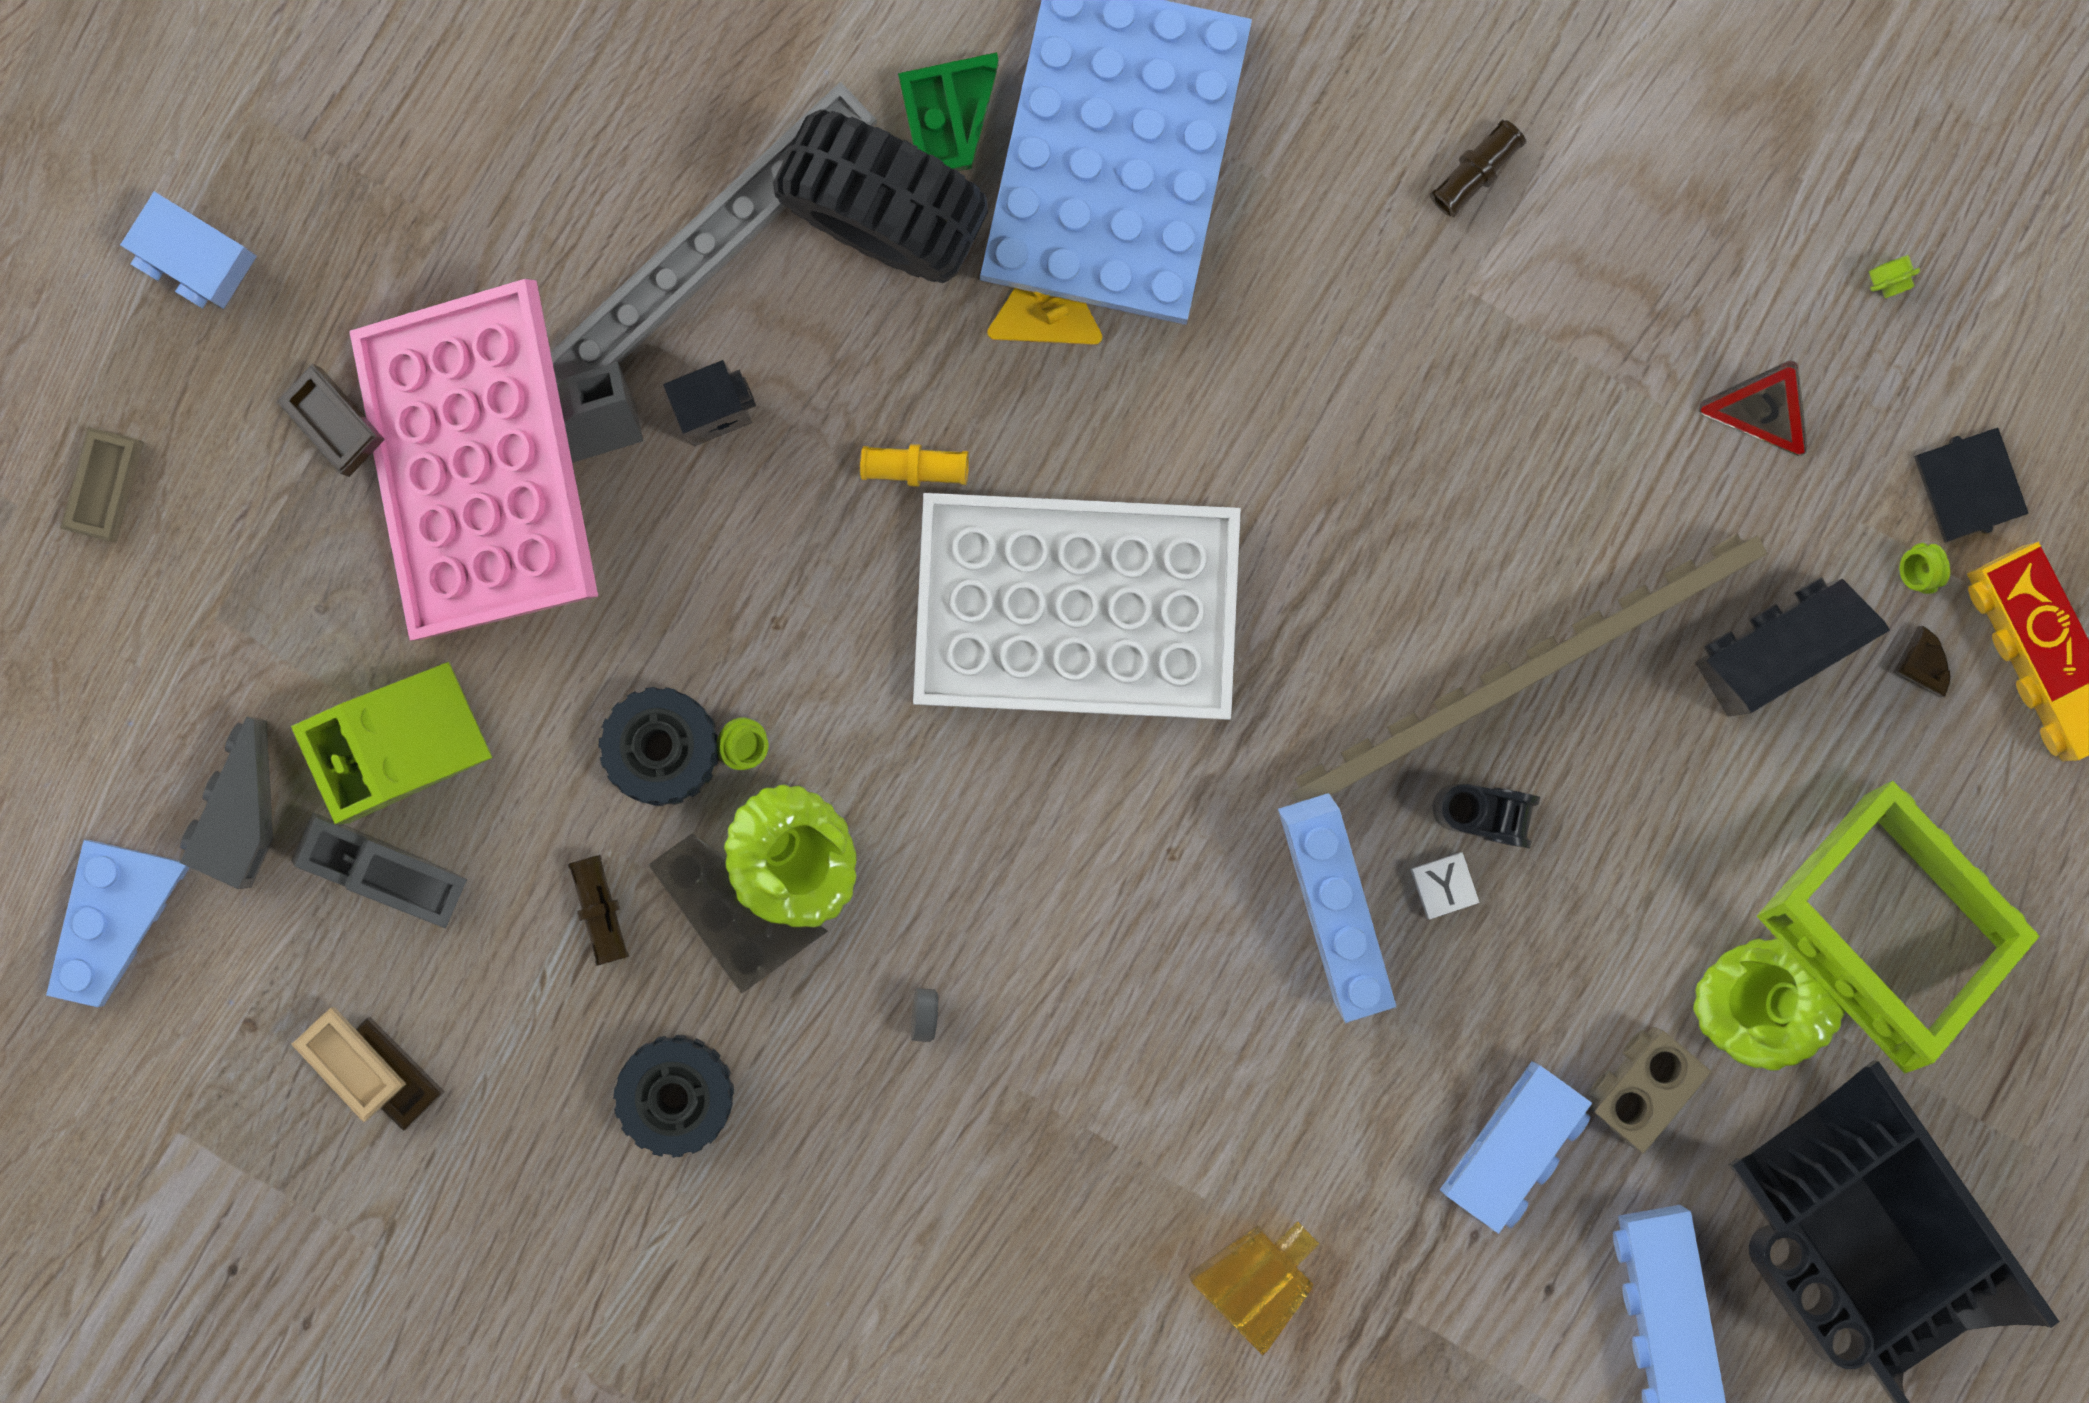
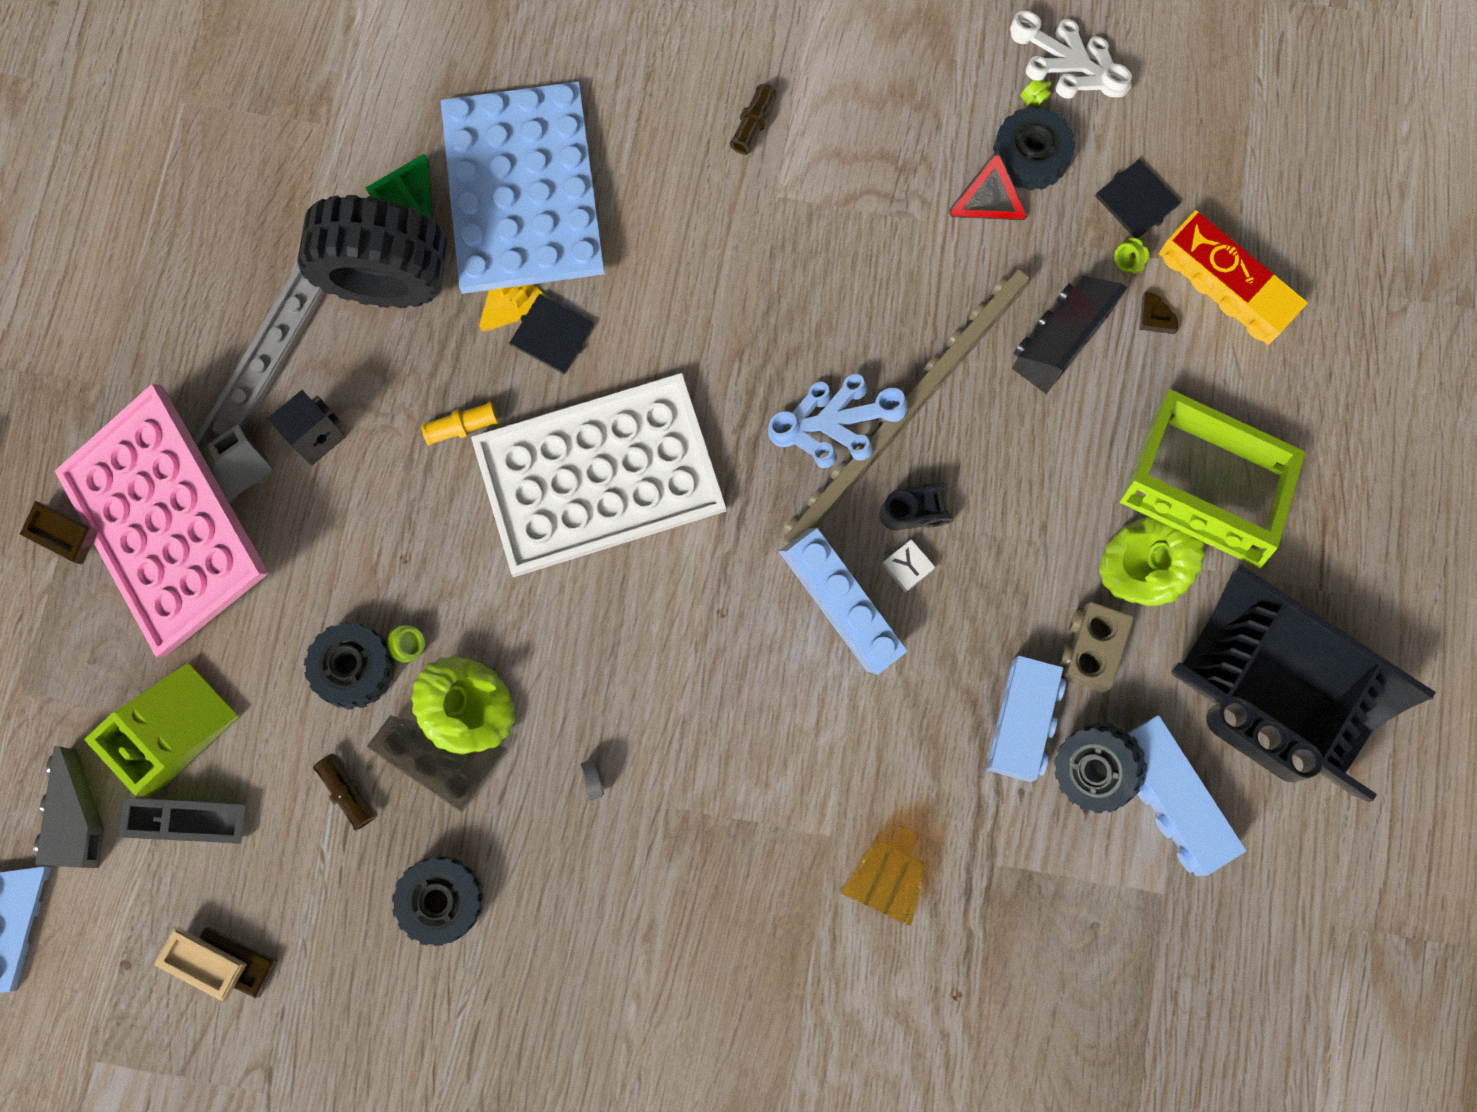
camera: 15 degrees left, 10 degrees down
(1082, 380) = (551, 334): none -> black piece
(1419, 651) = (833, 418): none -> light blue plant
(1615, 1241) = (1120, 756): none -> black wheel
(1876, 337) = (1038, 130): none -> black wheel
(1965, 249) = (1107, 76): none -> white plant

